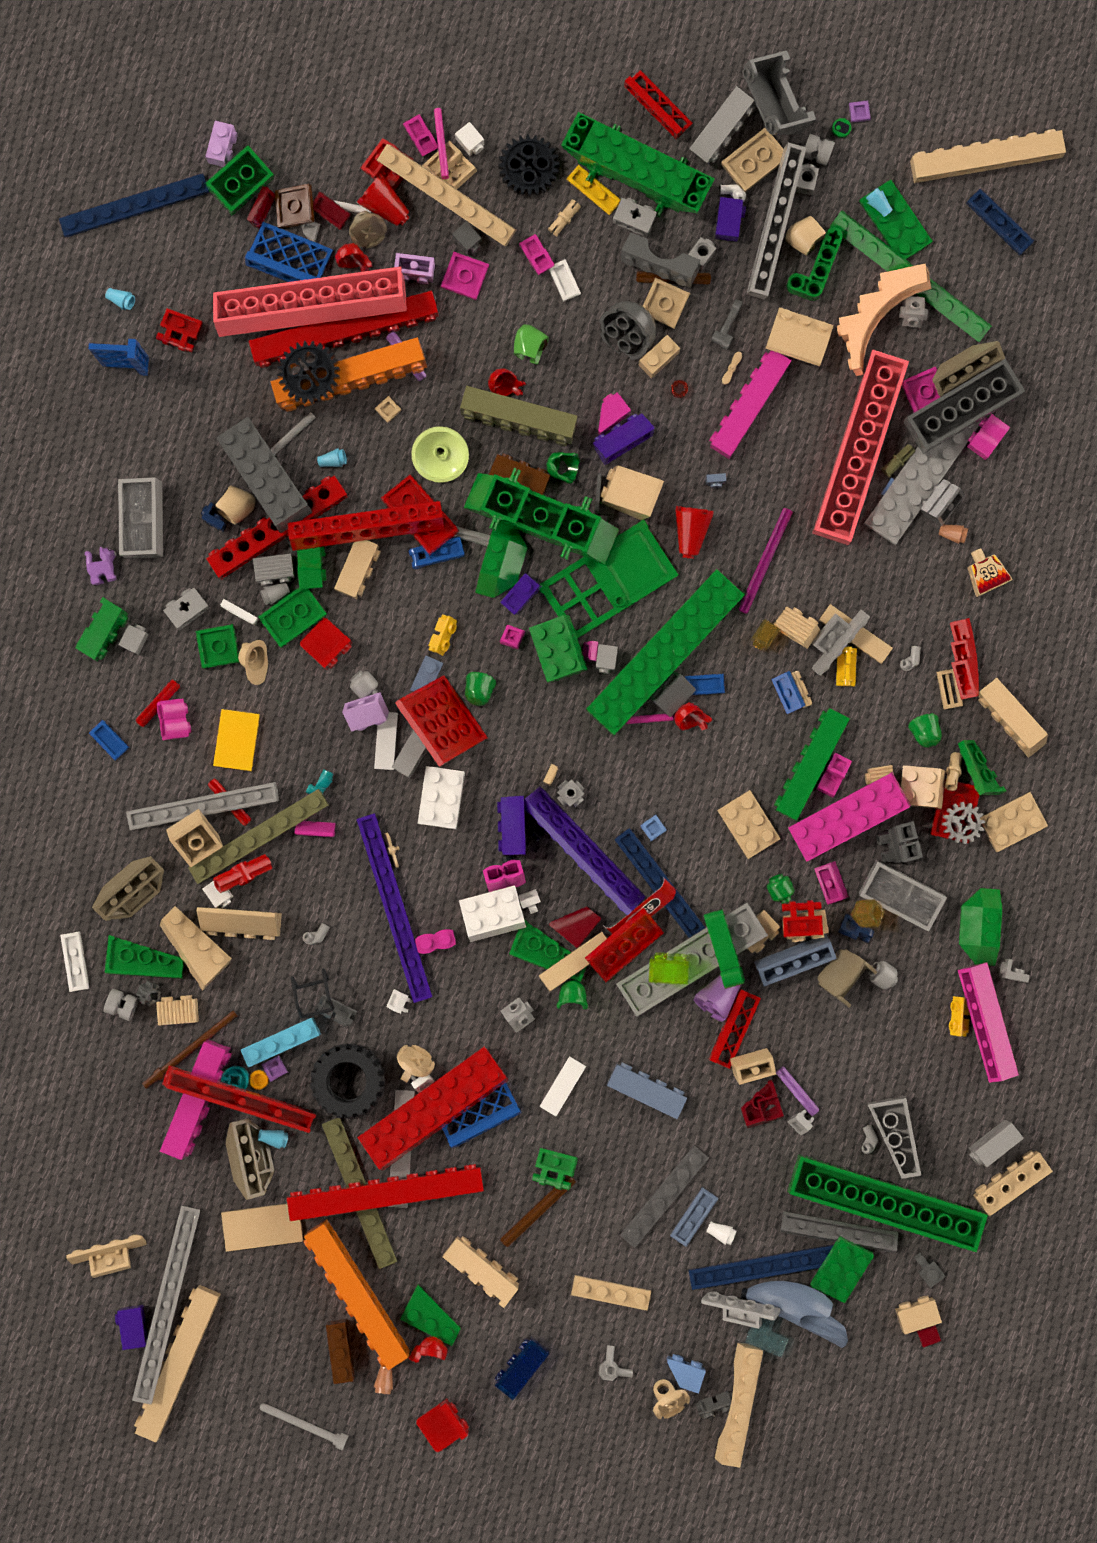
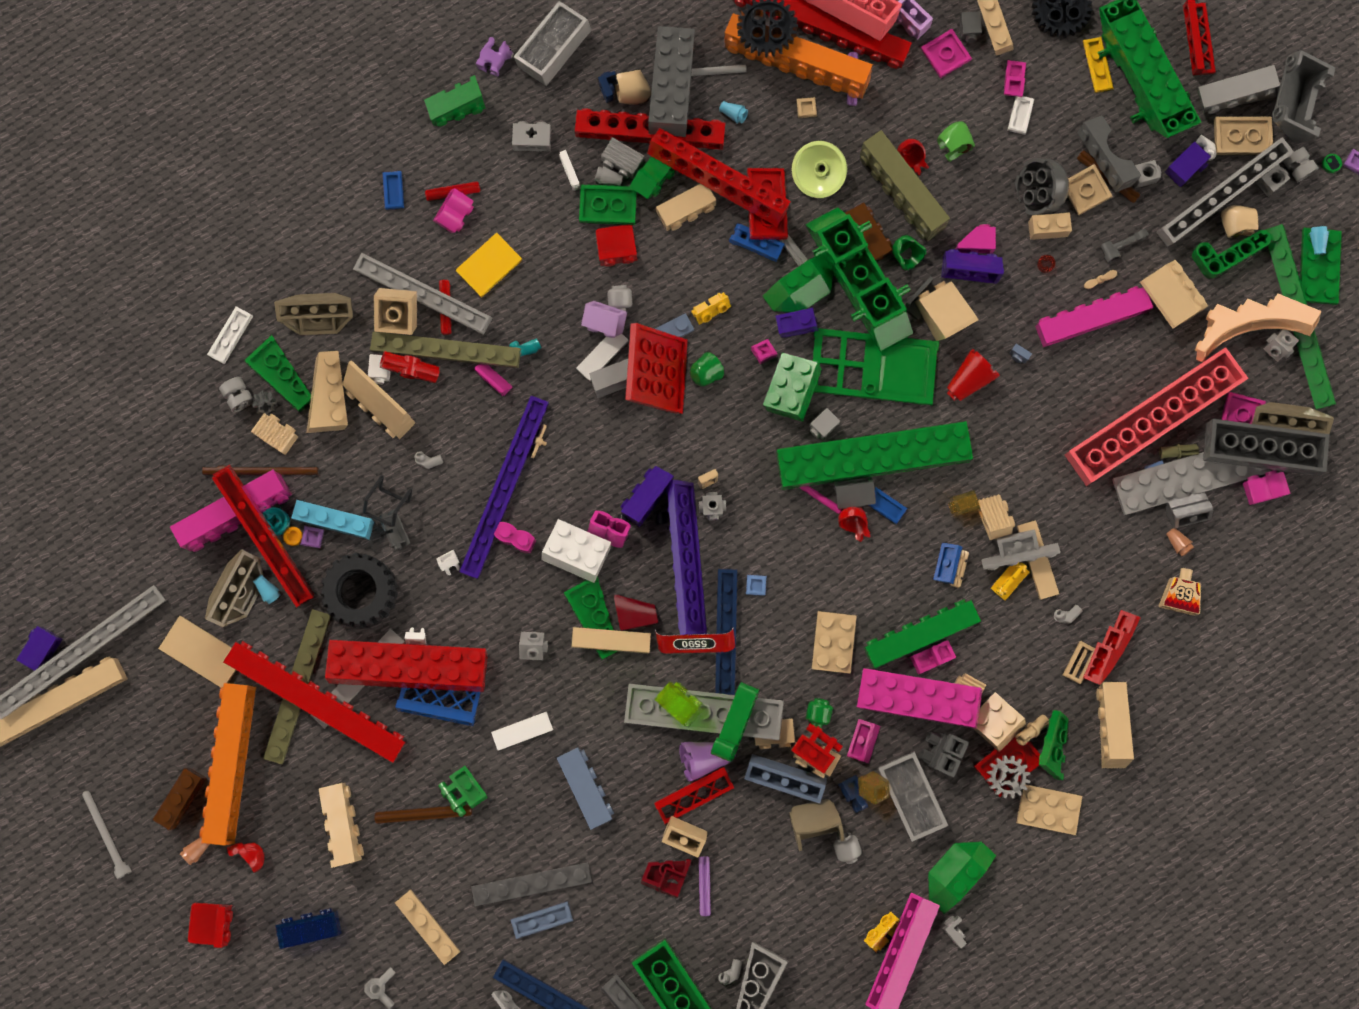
camera: 40 degrees right, 5 degrees down
(108, 1257) = (67, 580): tan bracket -> none
(134, 638) = (474, 128): light grey brick -> none
(217, 646) = (532, 183): green plate -> none
(255, 661) = (551, 215): tan piece -> none
(415, 1062) = (422, 618): tan tile -> none
(429, 1317) = (270, 829): green wing -> none
(441, 797) = (609, 430): white brick -> none
(530, 900) = (613, 564): white tile -> none
(564, 217) = (1058, 67): tan pin -> none
(572, 992) = (589, 662): green hair -> none
(590, 651) = (816, 408): dark pink tile -> none
(624, 945) = (659, 658): red tile -> none
(642, 223) = (1114, 116): light grey brick -> none
(722, 1232) = (554, 952): white cone -> none
(765, 560) = (1010, 447): magenta axle -> none
(800, 1123) = (686, 914): light grey tile -> none
(926, 730) = (1035, 679): green hair -> none

